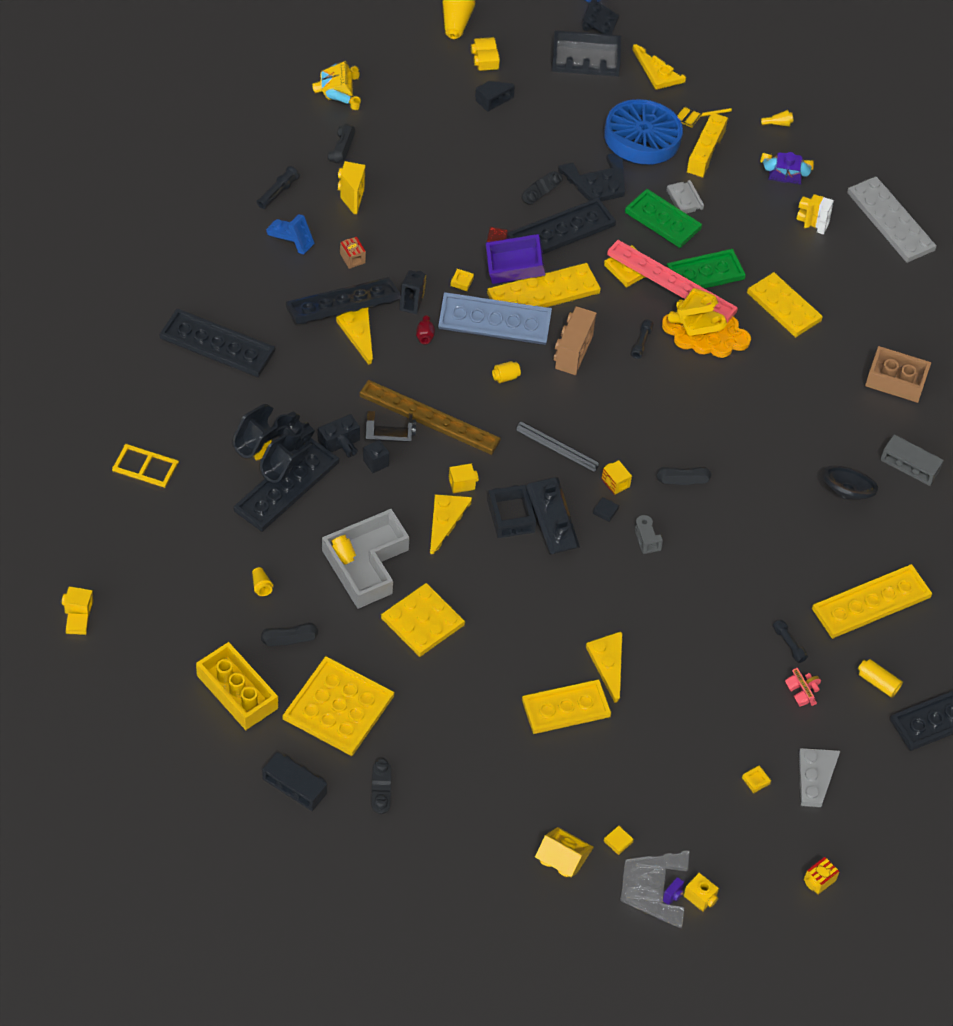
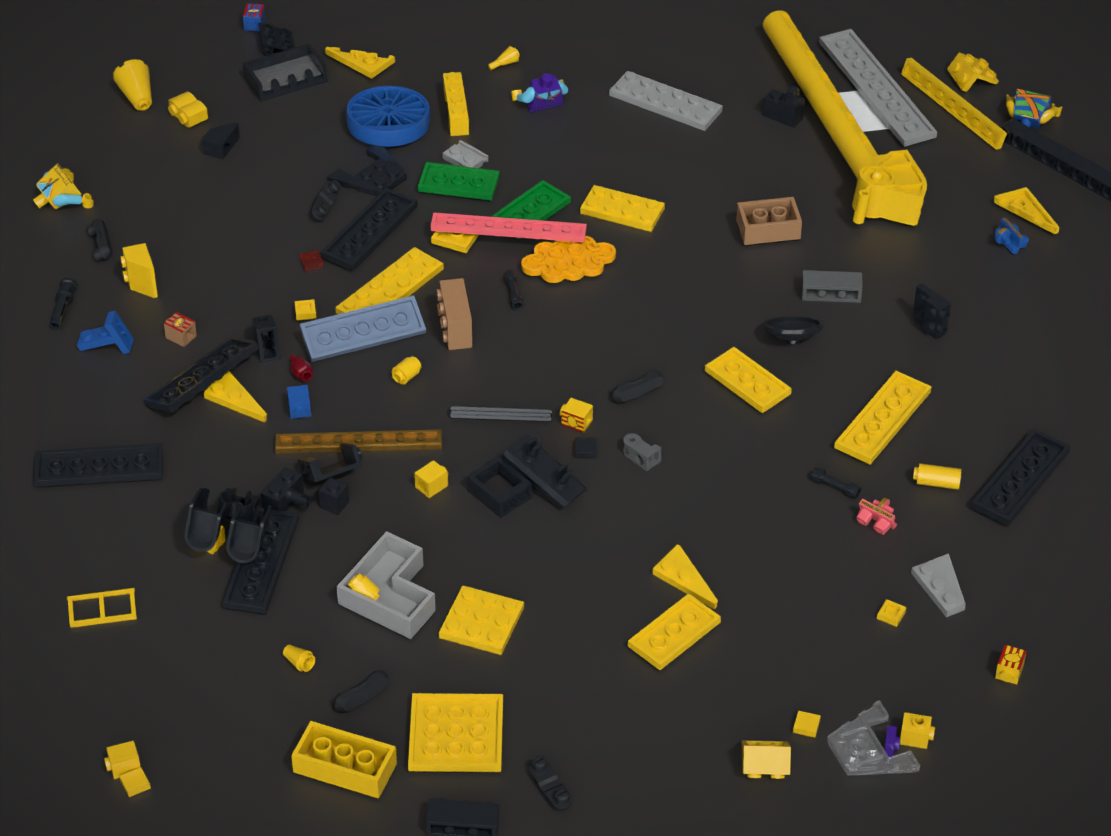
camera: 25 degrees left, 10 degrees down
(403, 360) = (299, 401): none -> blue brick
(446, 514) = (437, 519): yellow wing -> none
(515, 259) = (348, 267): dark purple piece -> none
(690, 117) = (424, 87): piece -> none
(697, 315) = (554, 242): yellow piece -> none
(781, 512) = (748, 379): none -> yellow plate
(816, 212) = (601, 119): hips -> none

